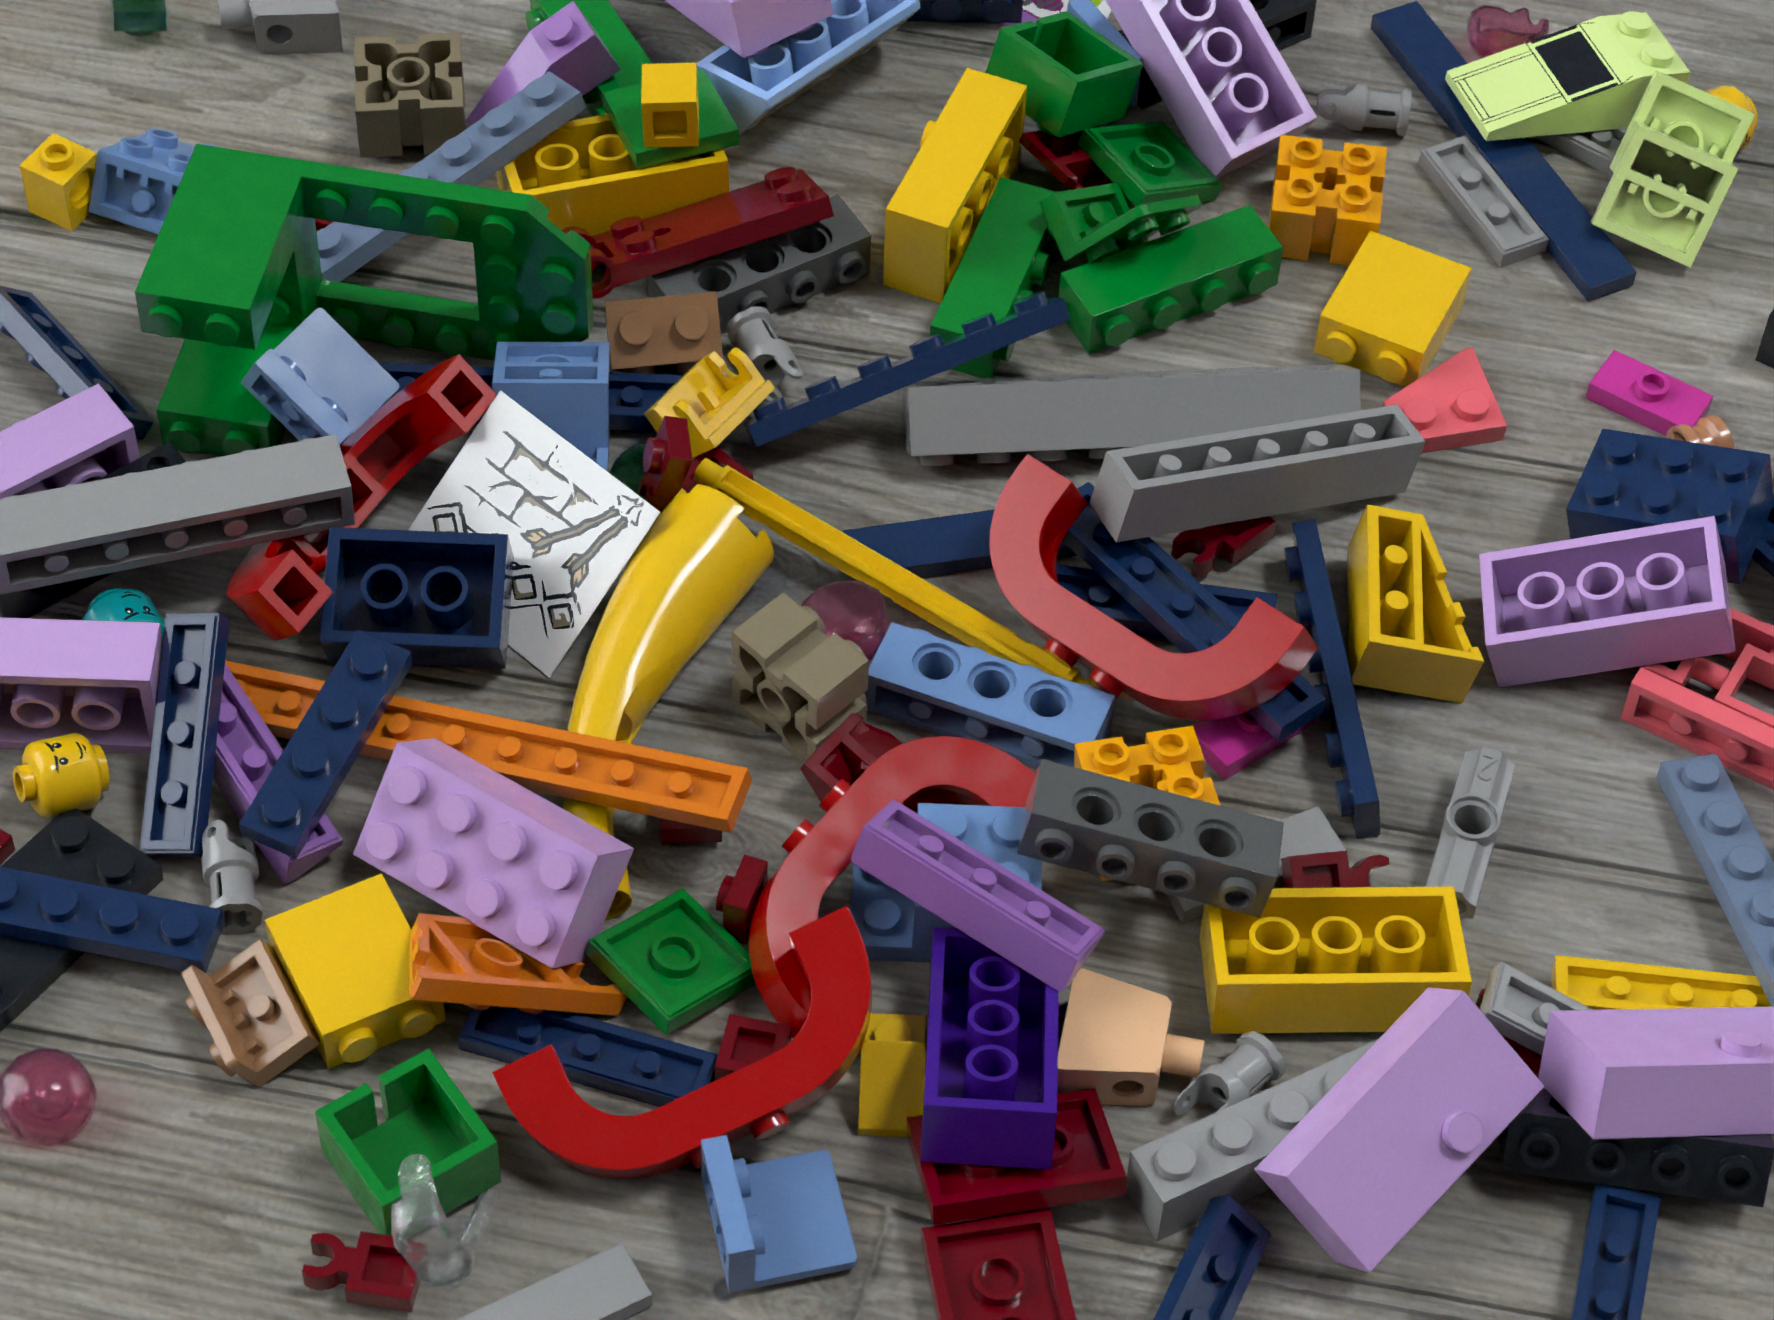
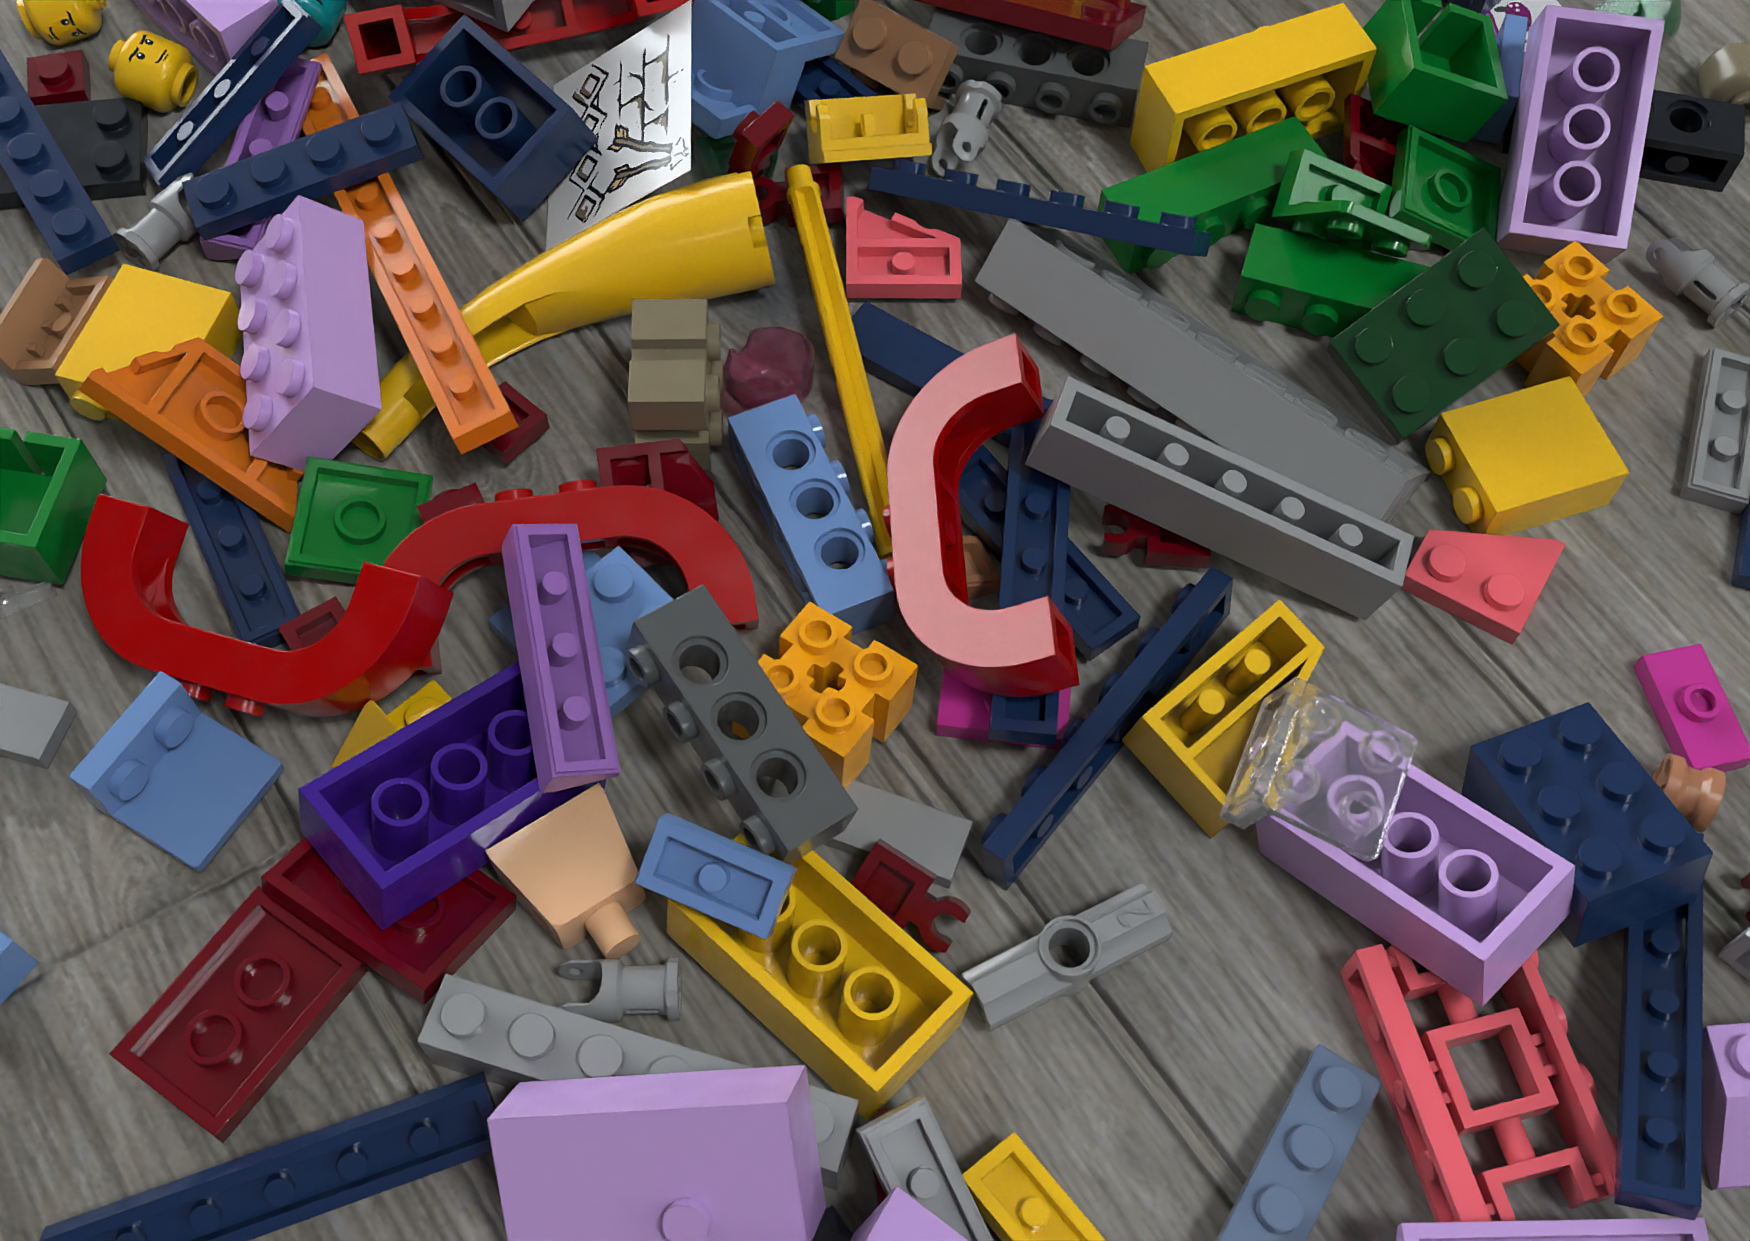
camera: 45 degrees right, 10 degrees up
(831, 479) = (898, 257): none -> coral wing
(1241, 936) = (716, 875): none -> medium blue plate
(1275, 262) = (1442, 335): none -> dark green brick
(1506, 580) = (1321, 769): none -> clear bracket

